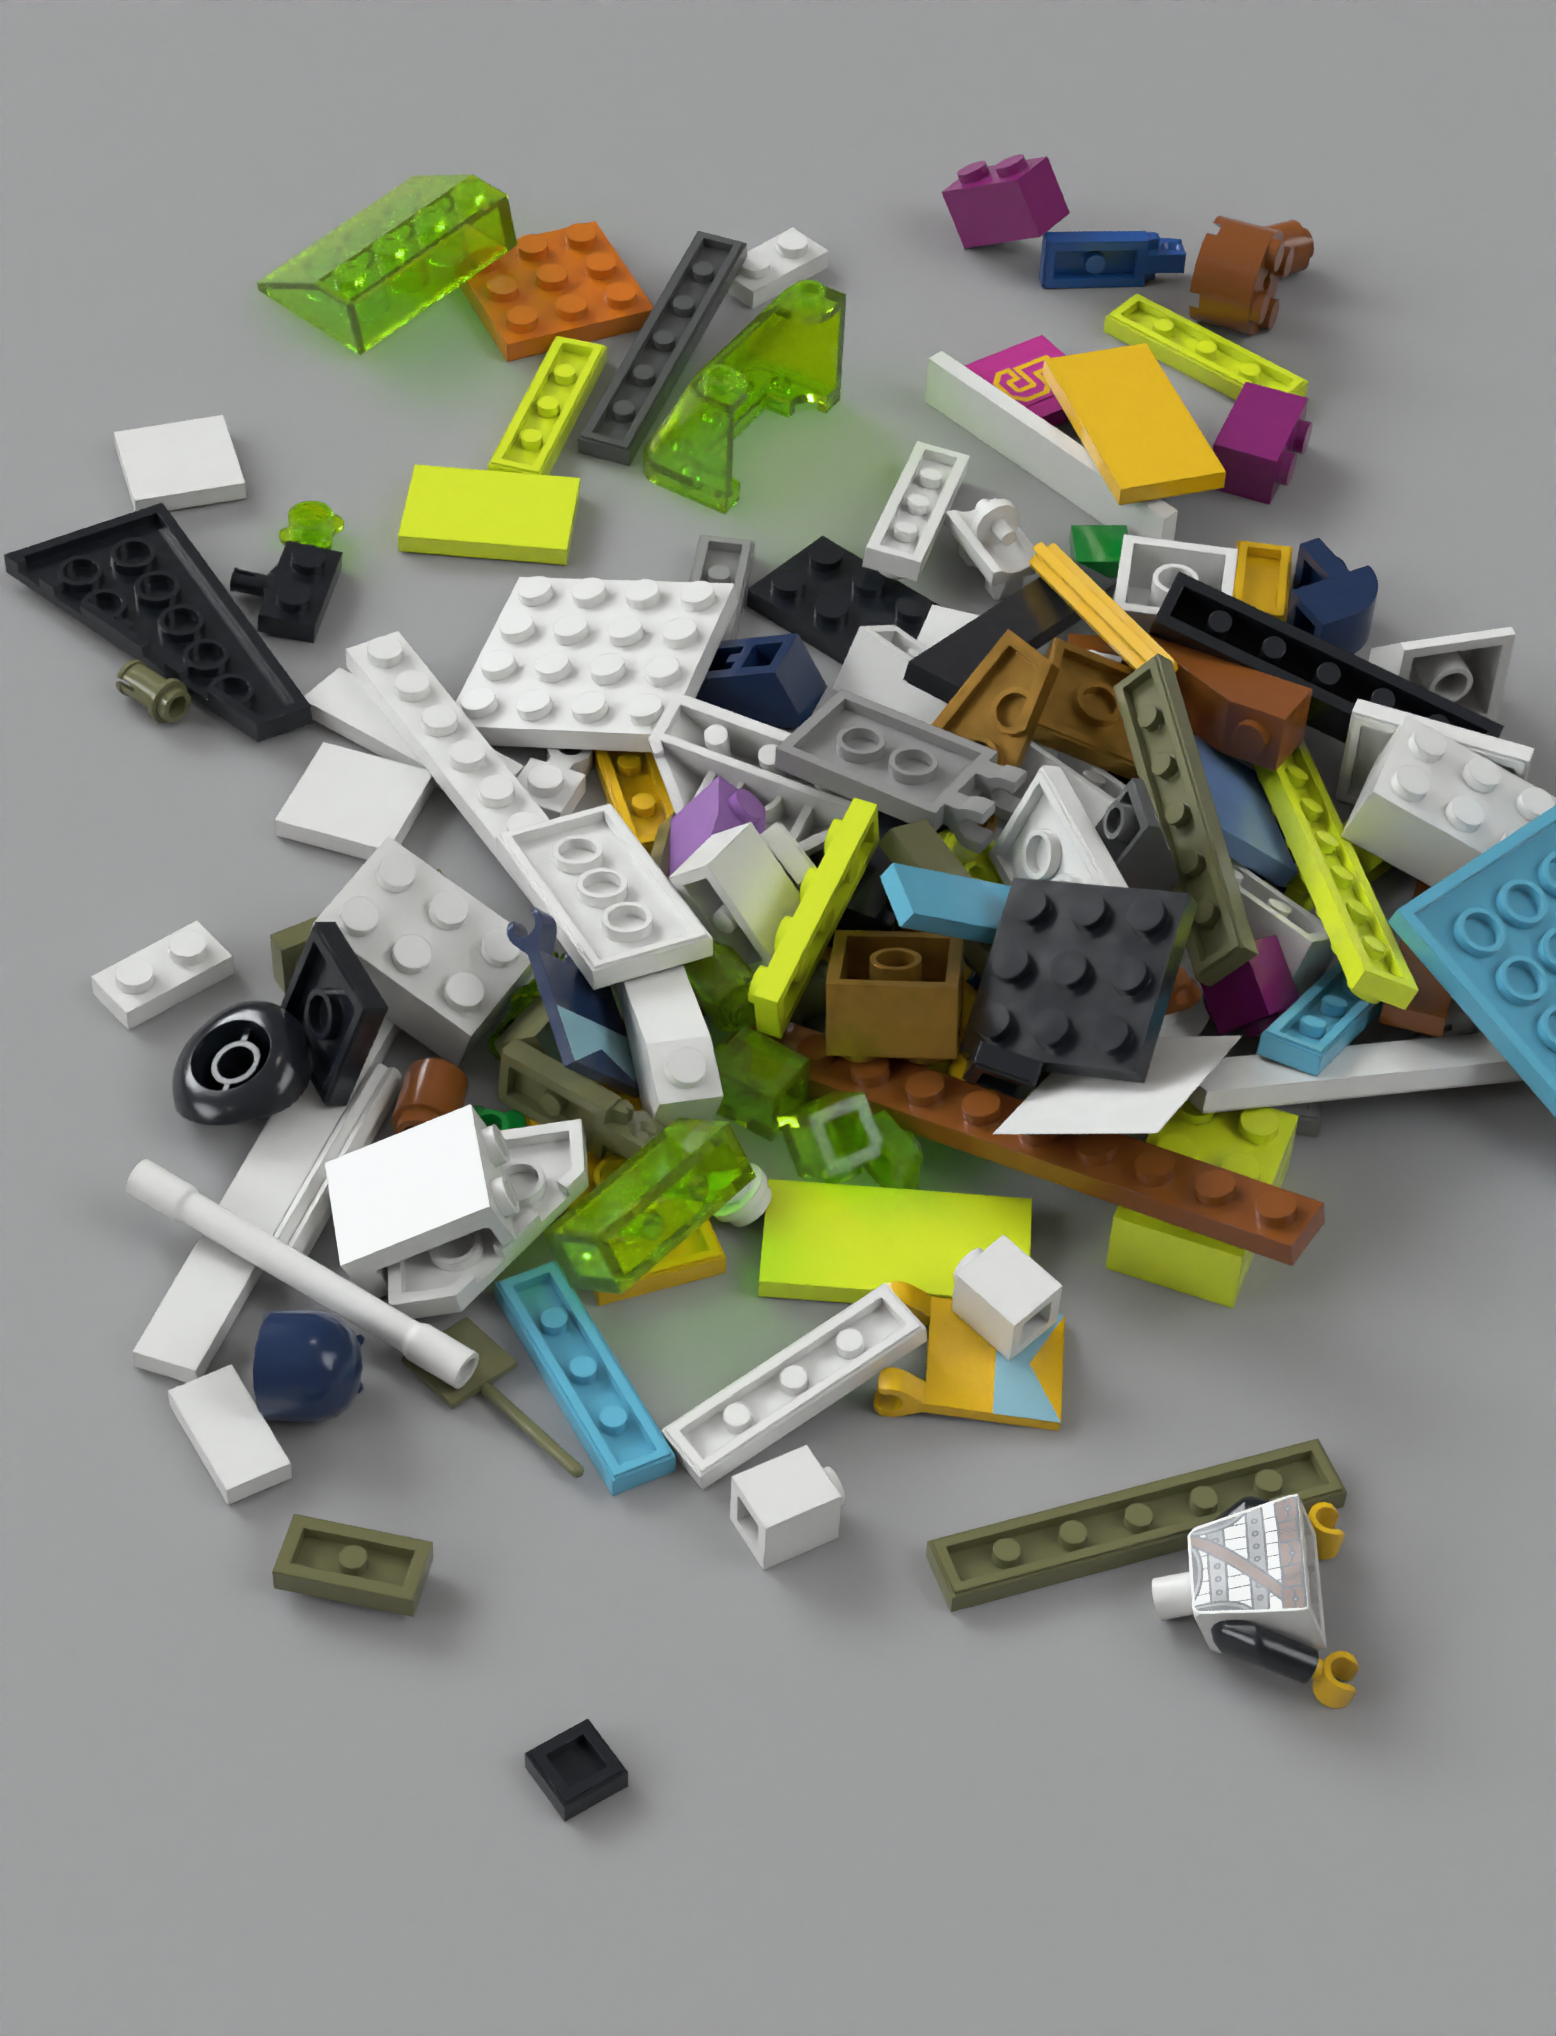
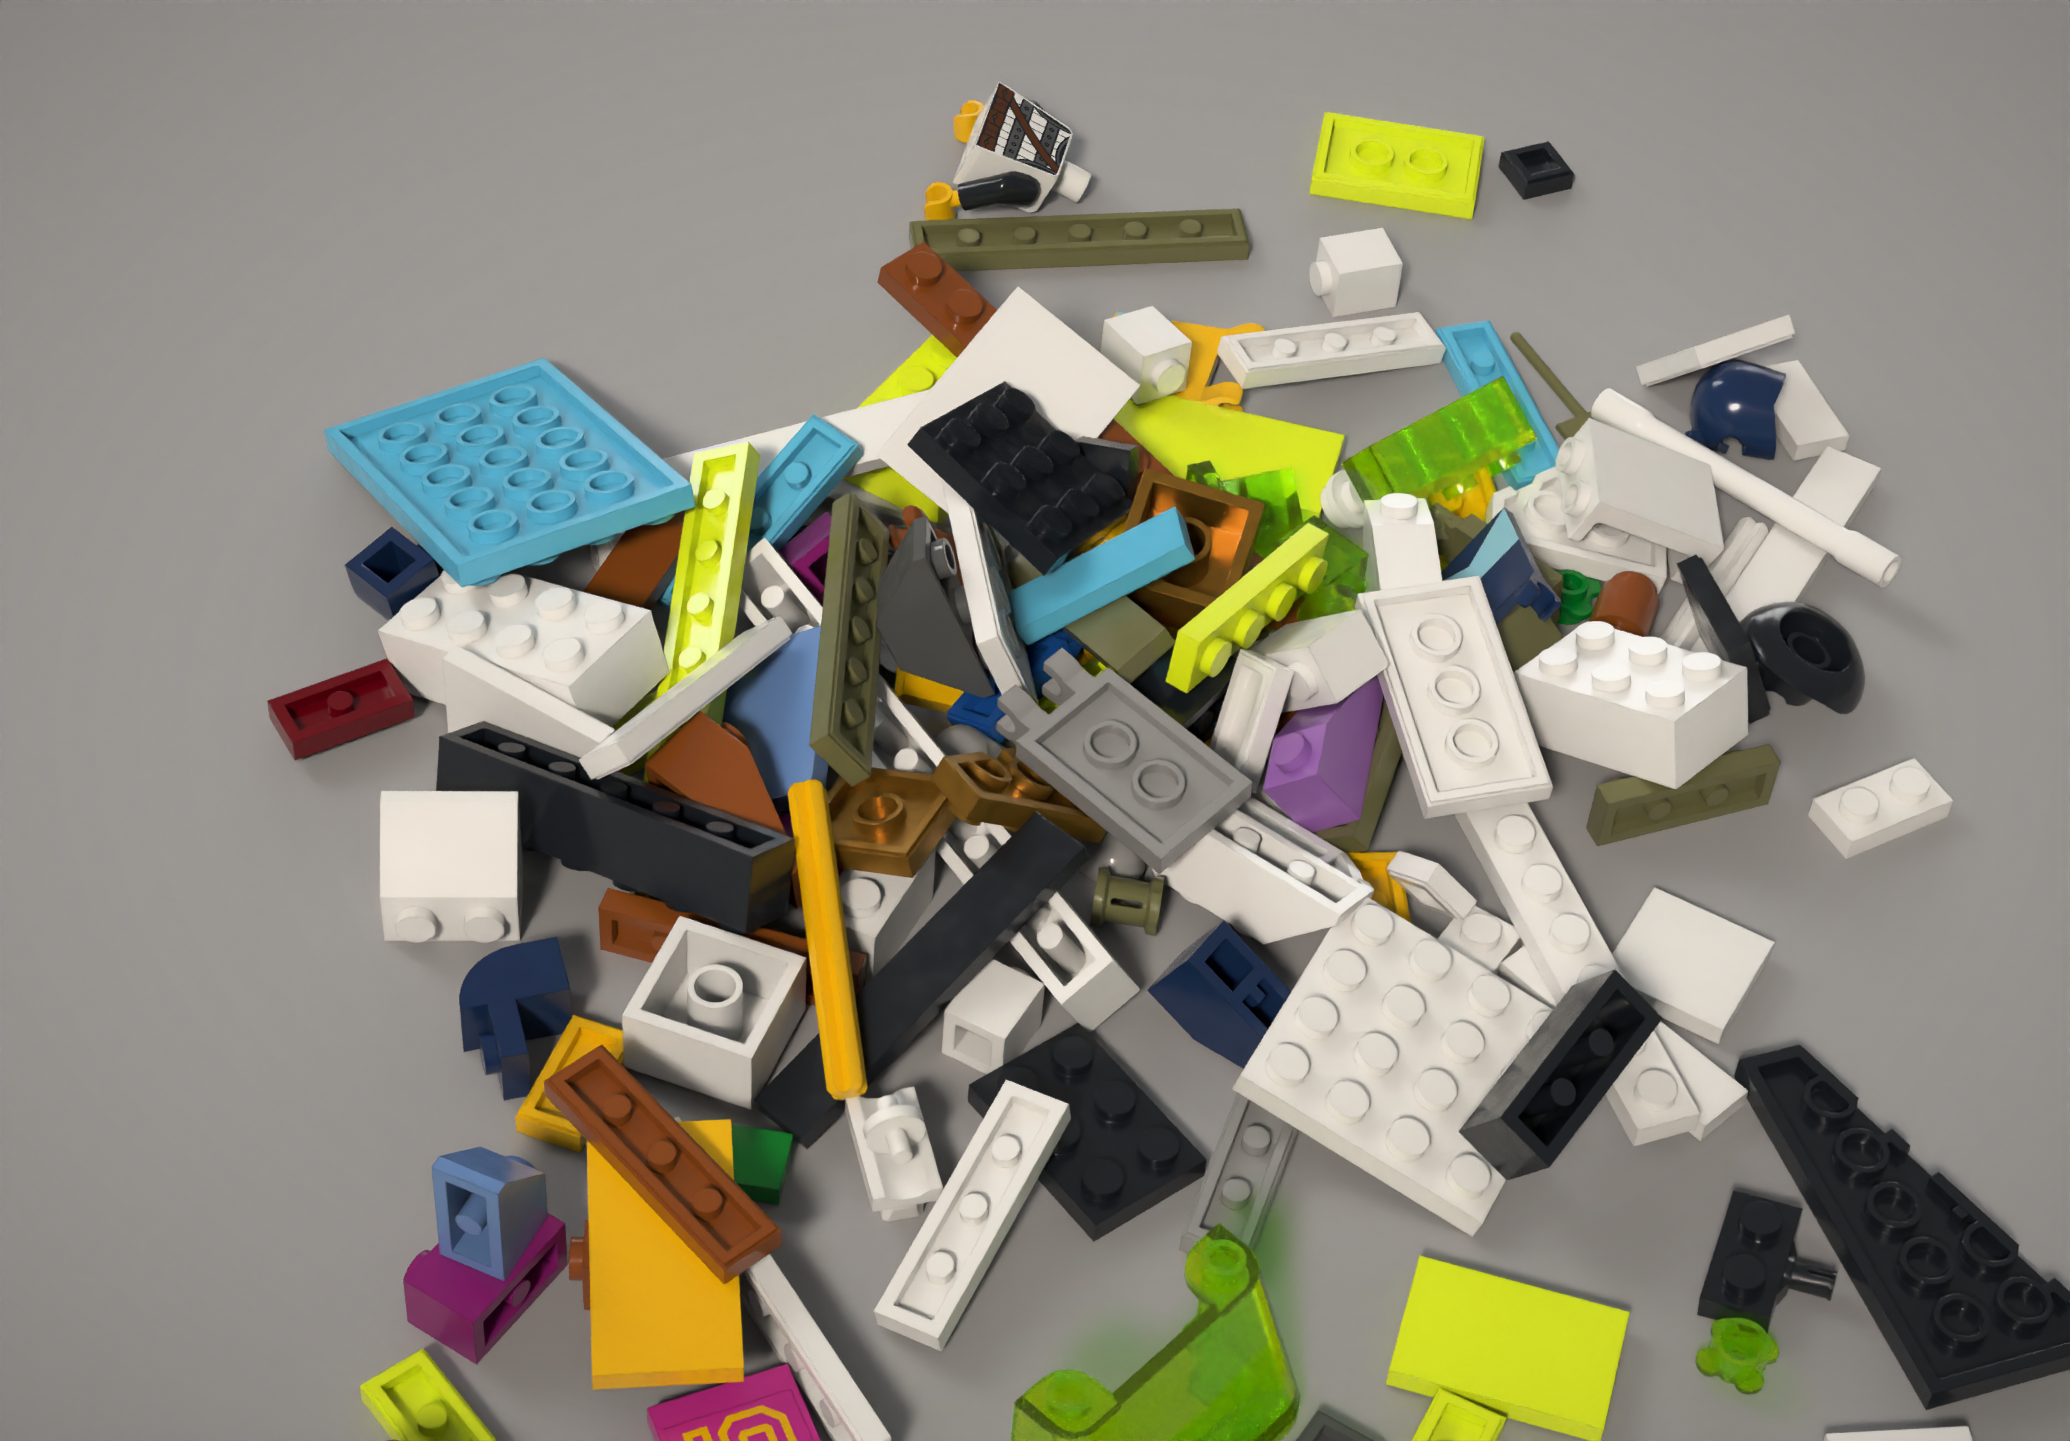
camera: 170 degrees left, 0 degrees up
(164, 698) = (1927, 1139): olive pin -> none
(335, 1431) = (1716, 351): none -> white tile
(353, 1565) = (1696, 297): olive plate -> none
(470, 600) = (1560, 1075): none -> black brick
(595, 786) = (1431, 885): none -> white tile
(764, 1739) = (1397, 165): none -> neon yellow tile
(1158, 446) = (663, 1164): none -> dark orange tile
(1267, 385) = (487, 1208): none -> medium blue slope
(1302, 744) = (685, 698): none -> white tile

